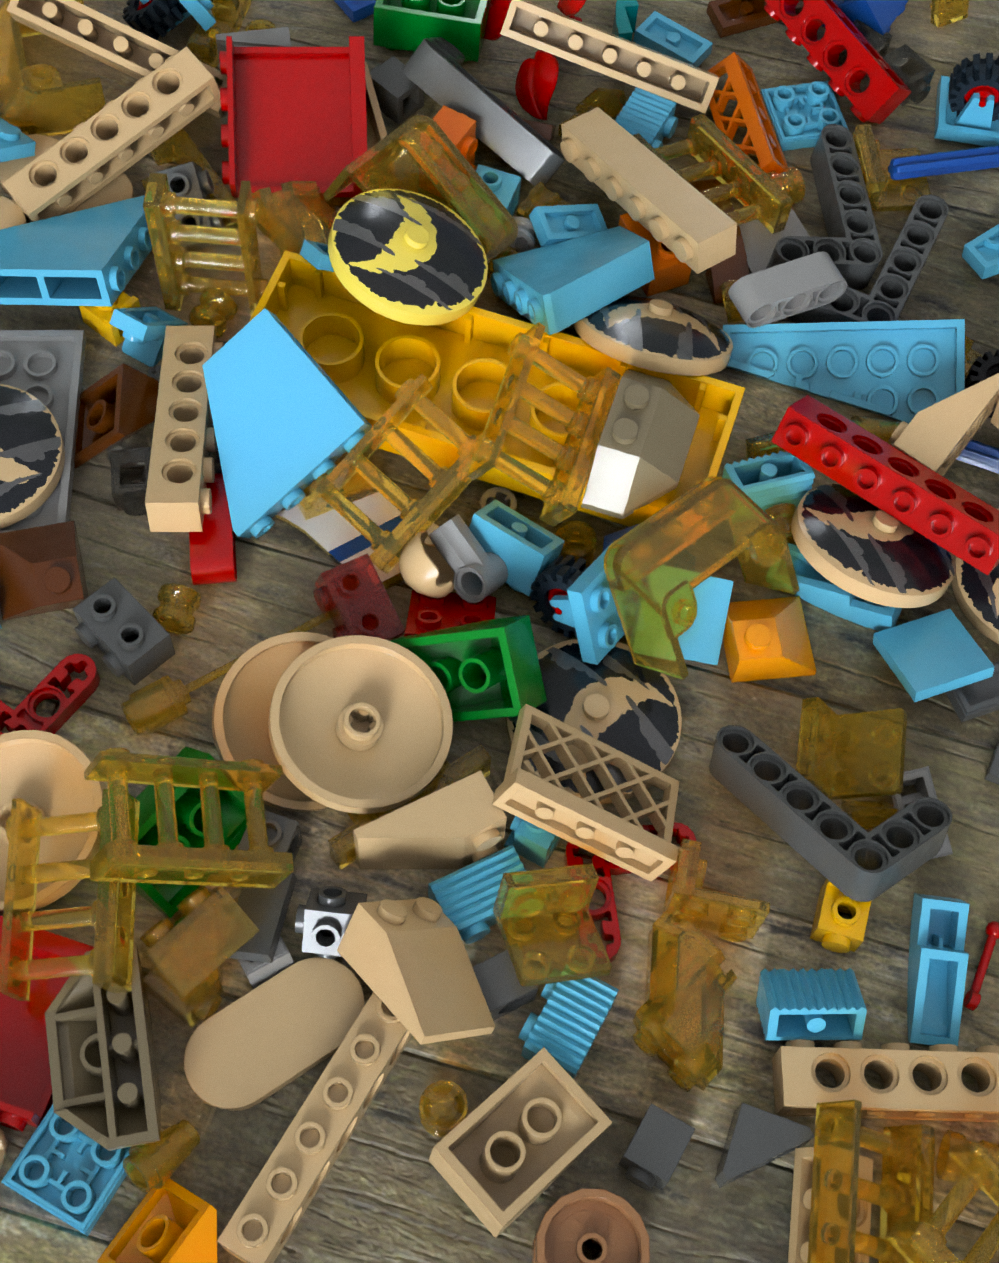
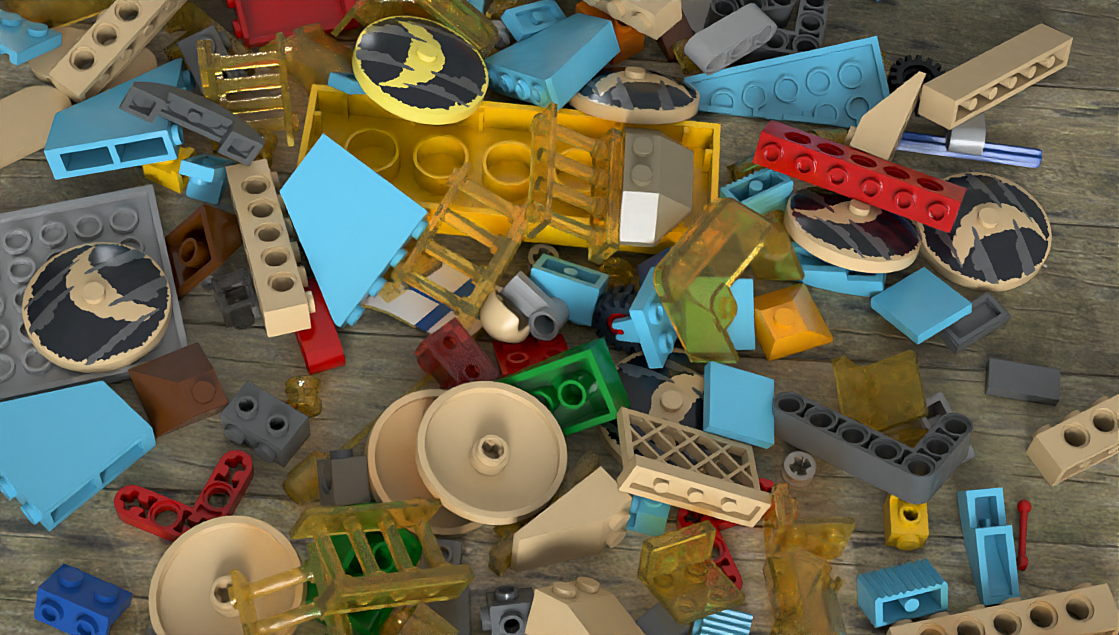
camera: 15 degrees left, 5 degrees down
(139, 257) = (195, 113): none -> dark grey slope
(186, 716) = (343, 479): none -> dark grey brick
(471, 892) = (618, 565): medium azure brick -> none
(674, 729) = (738, 405): none -> medium azure tile
(739, 812) = (798, 458): none -> light grey bush

